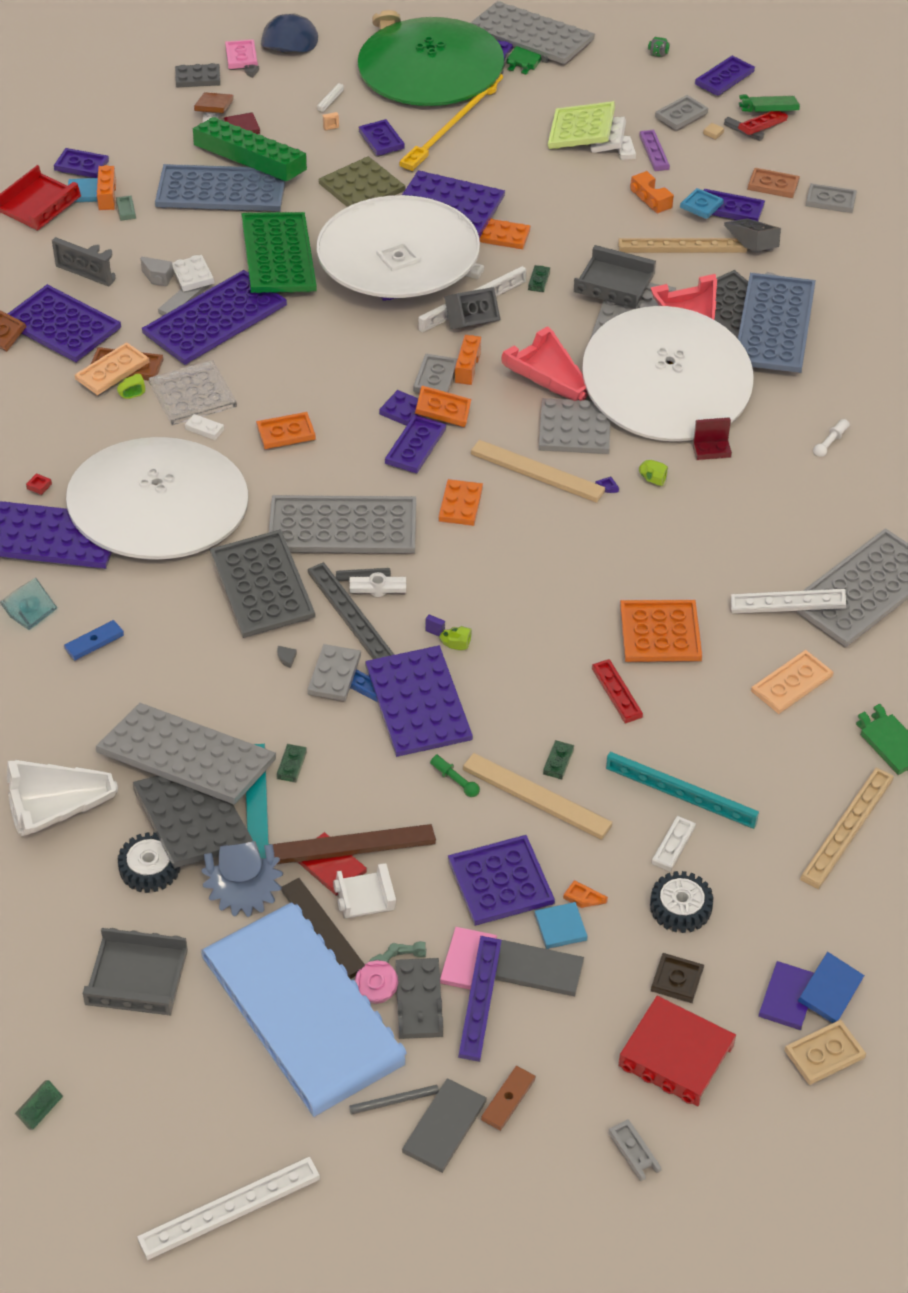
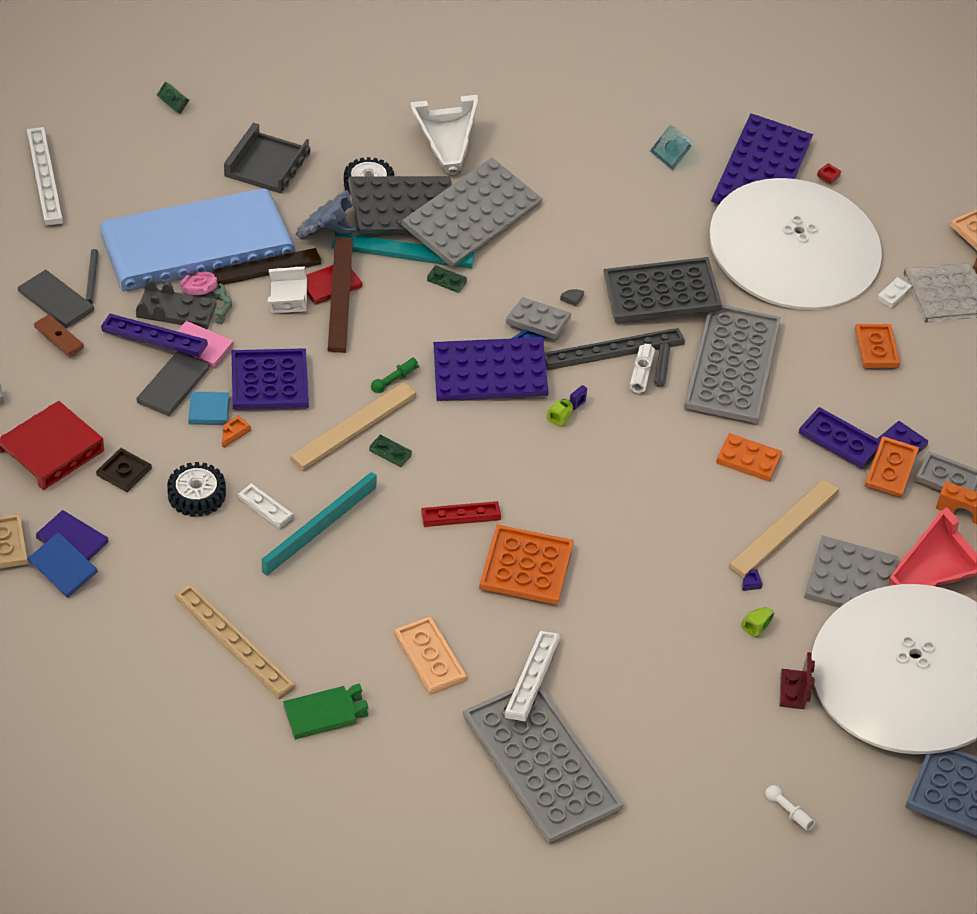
camera: 100 degrees right, 0 degrees up
(93, 640) = (623, 181): blue tile -> none
(131, 387) = (958, 249): lime rock -> none

